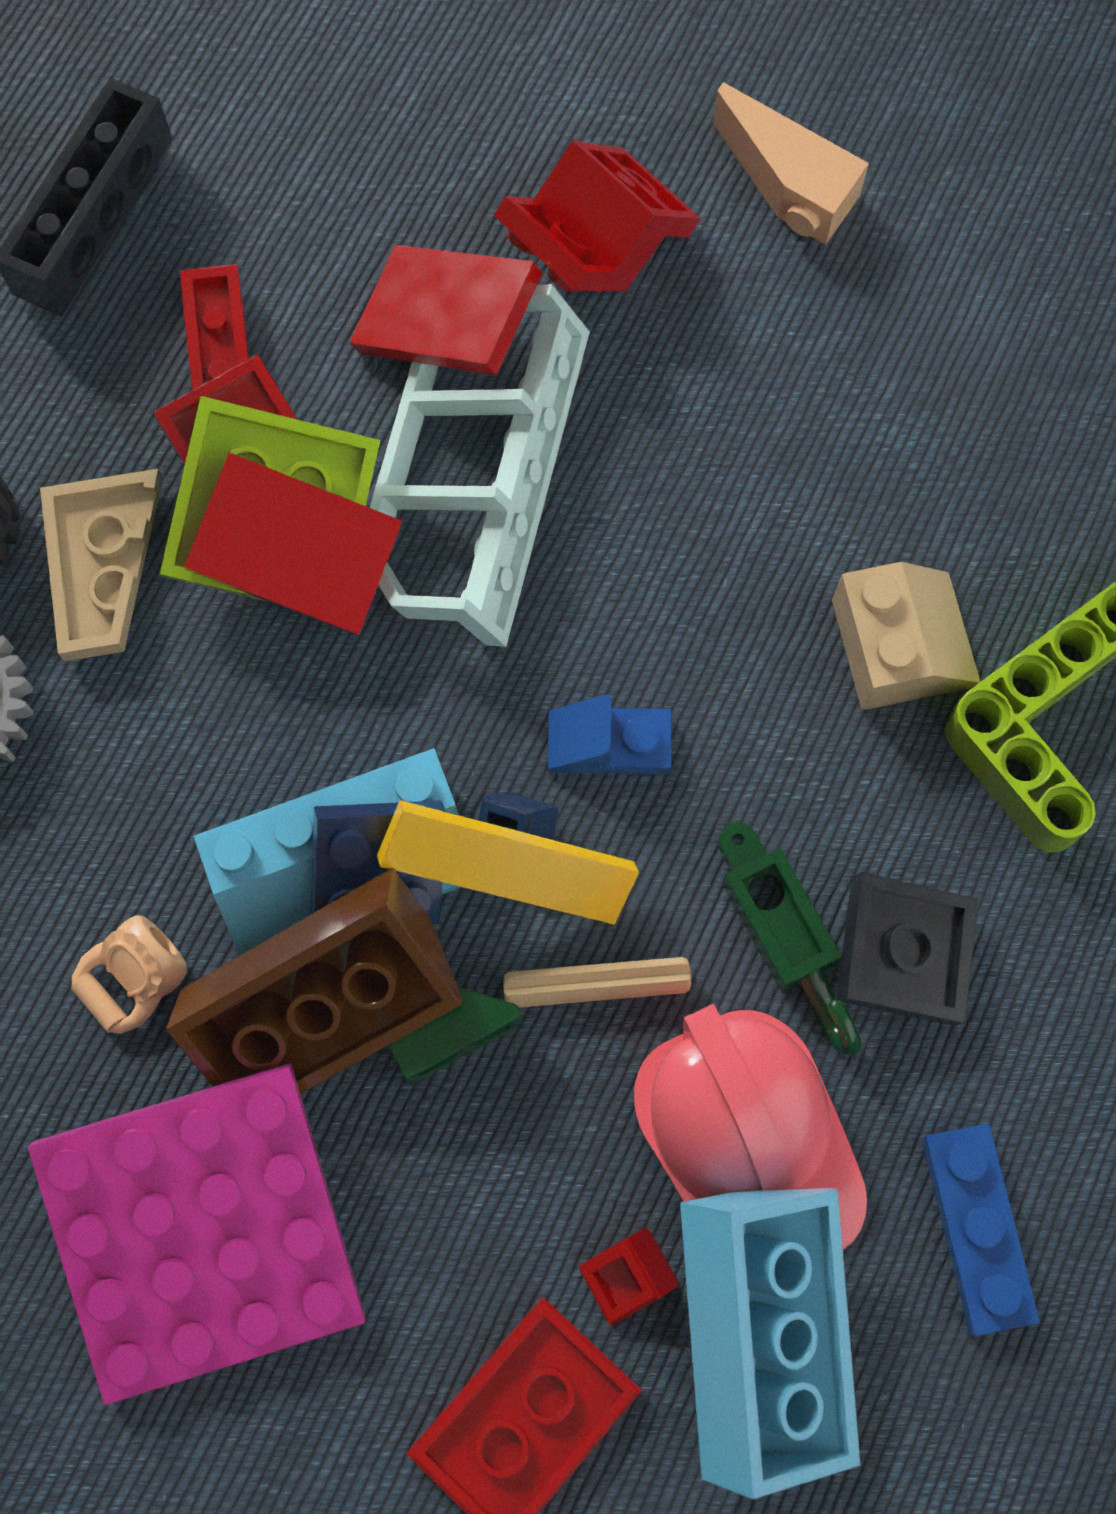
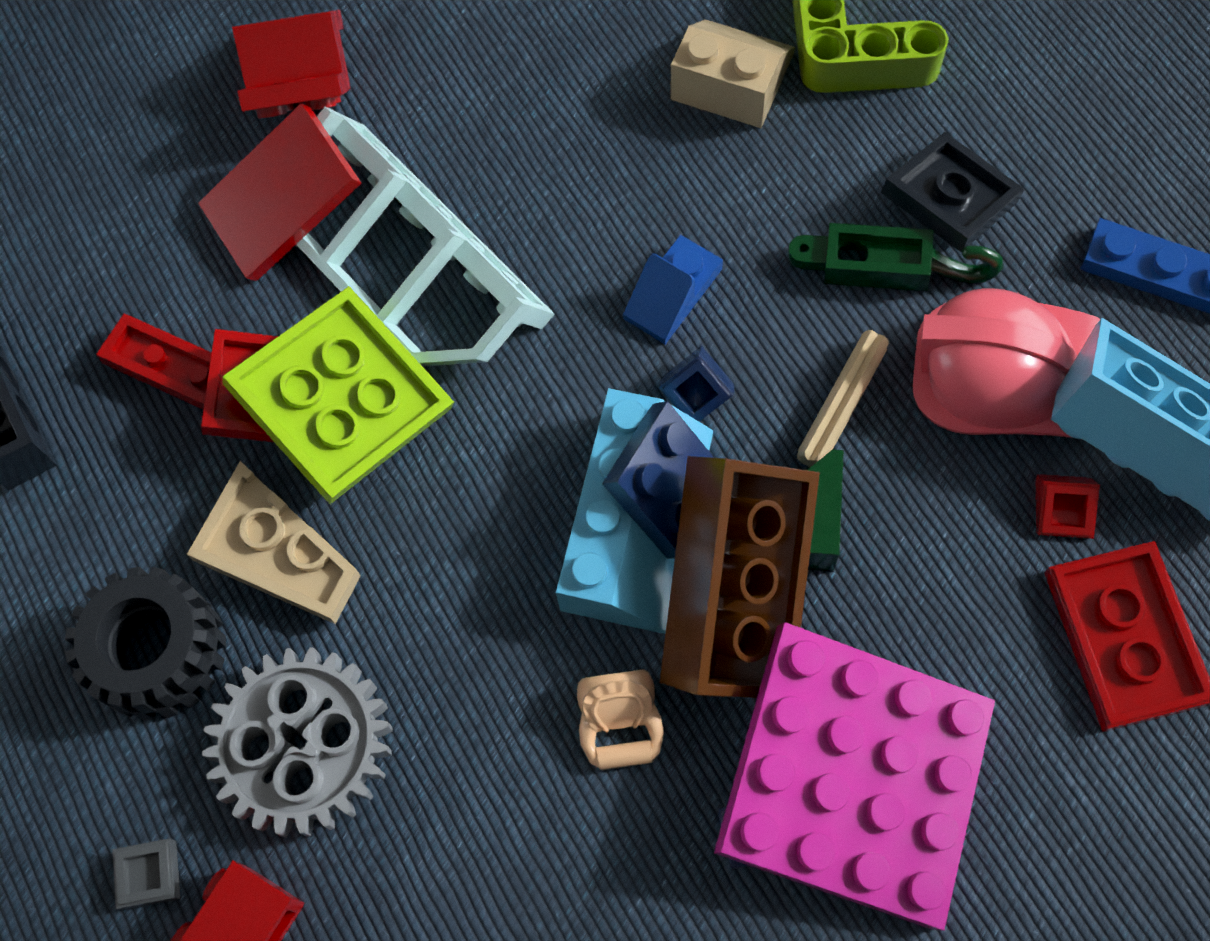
camera: 50 degrees left, 5 degrees down
(293, 544) = (381, 391): red tile -> none
(506, 863) = (726, 391): yellow tile -> none

